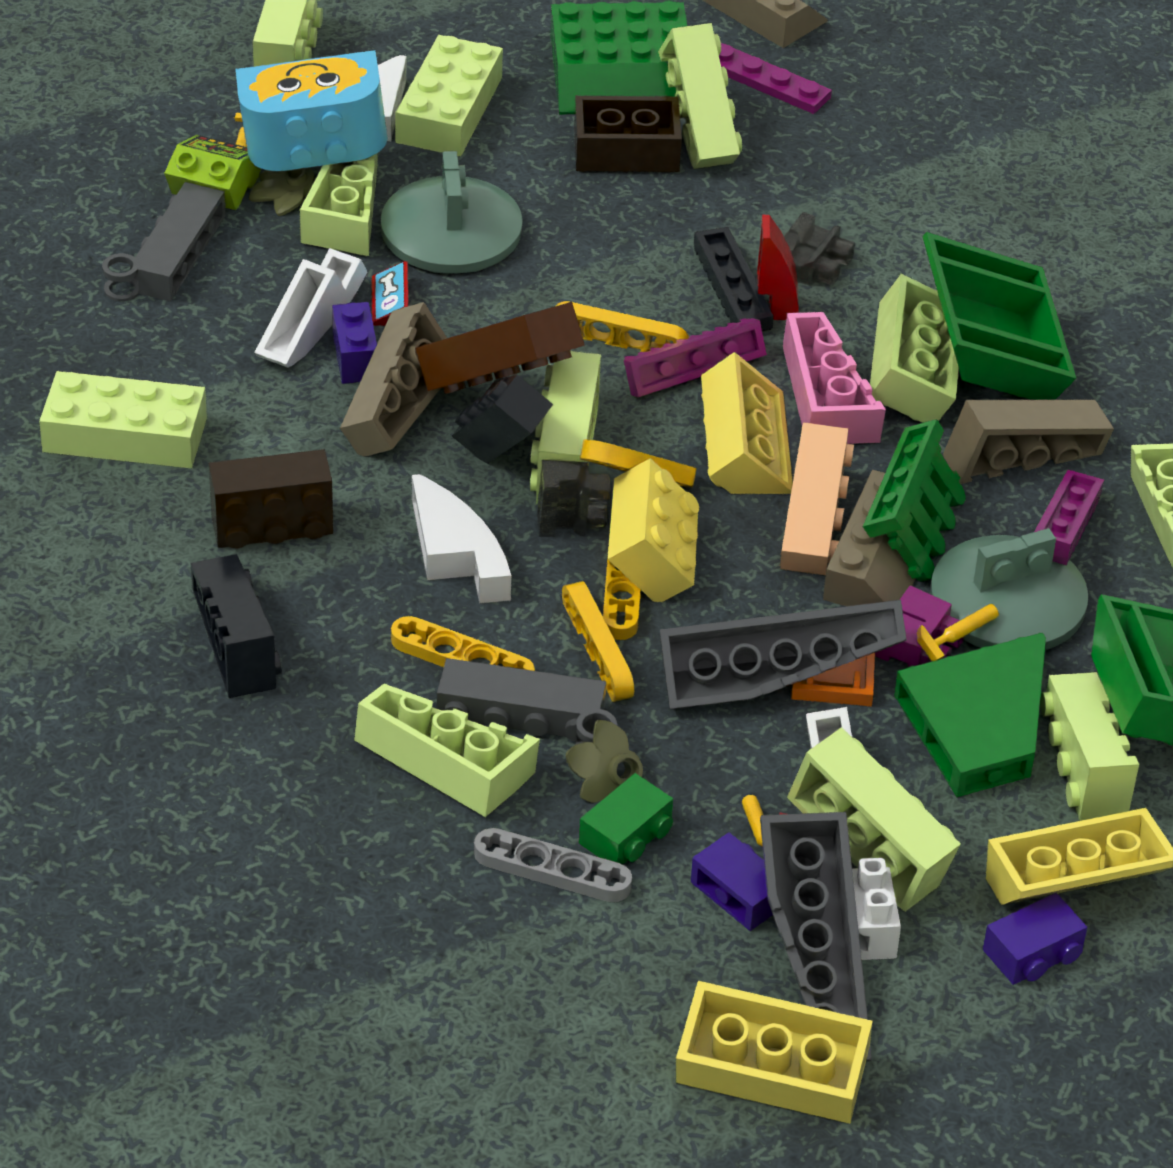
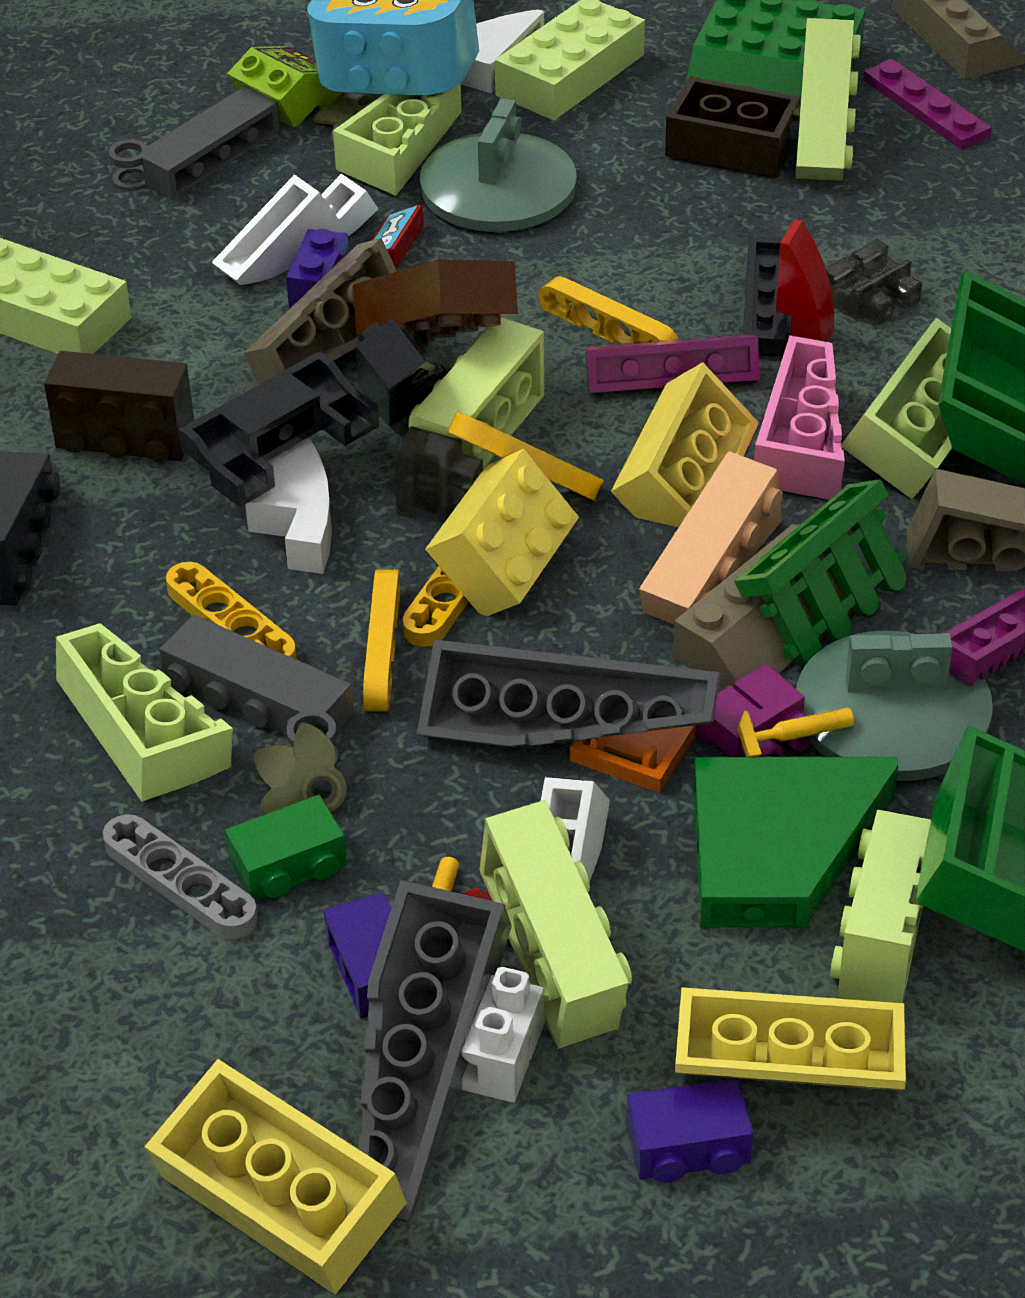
camera: 25 degrees right, 0 degrees up
(420, 480) = (270, 419): none -> black bracket

